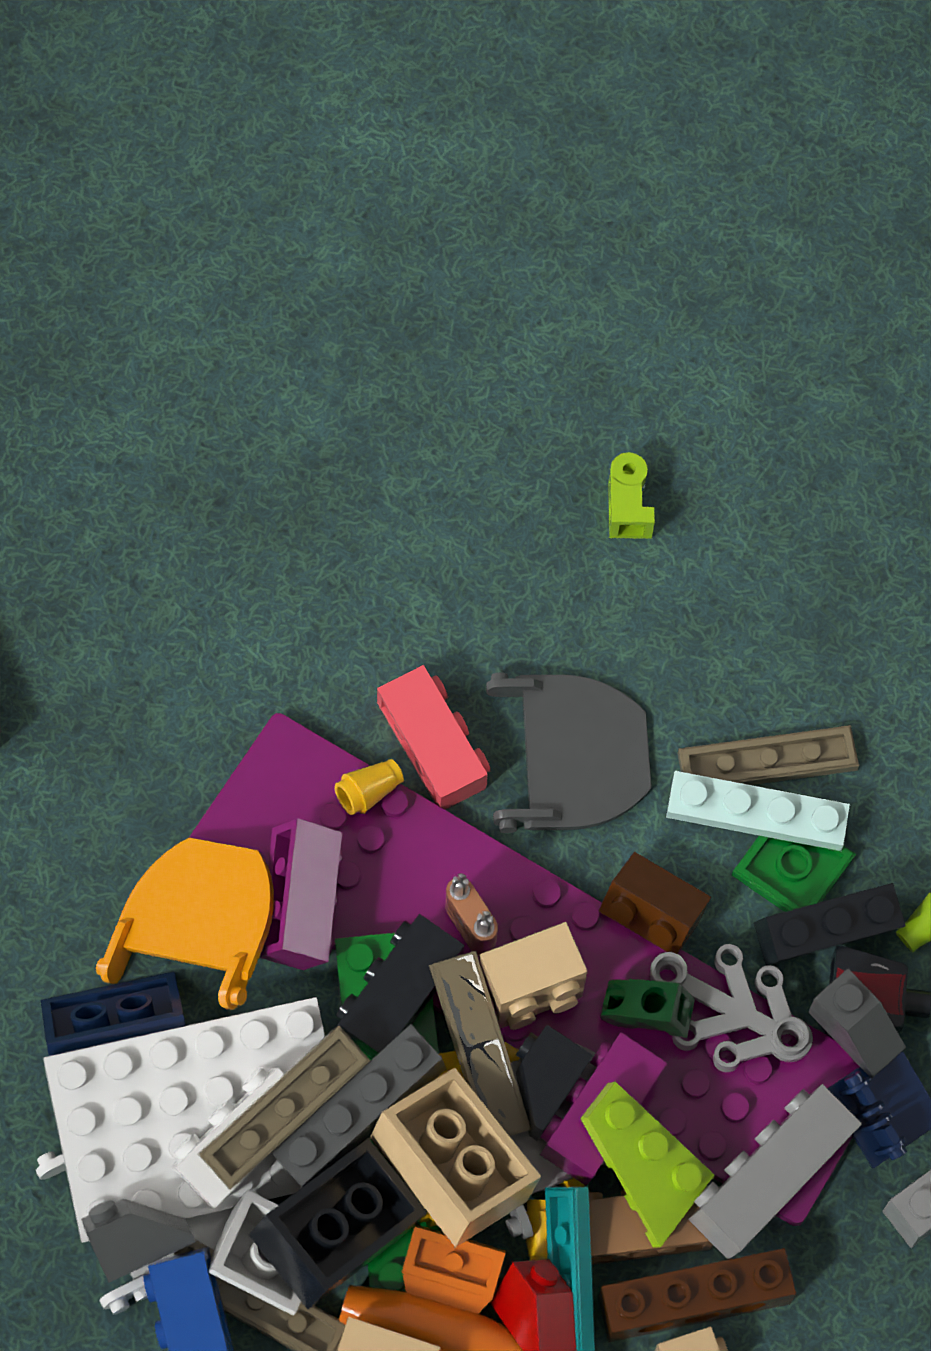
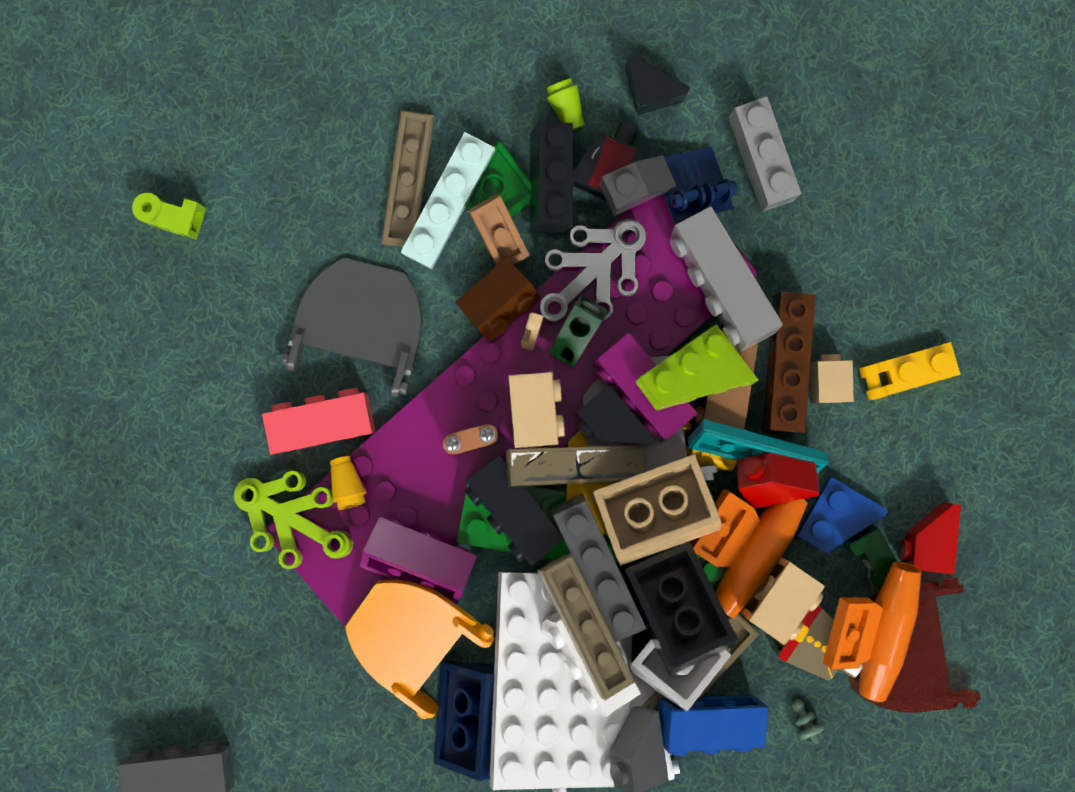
camera: 70 degrees left, 20 degrees up
(304, 732) = (287, 516): none -> lime plant
(637, 956) = (532, 331): none -> tan tile
(741, 880) = (498, 231): none -> medium nougat plate

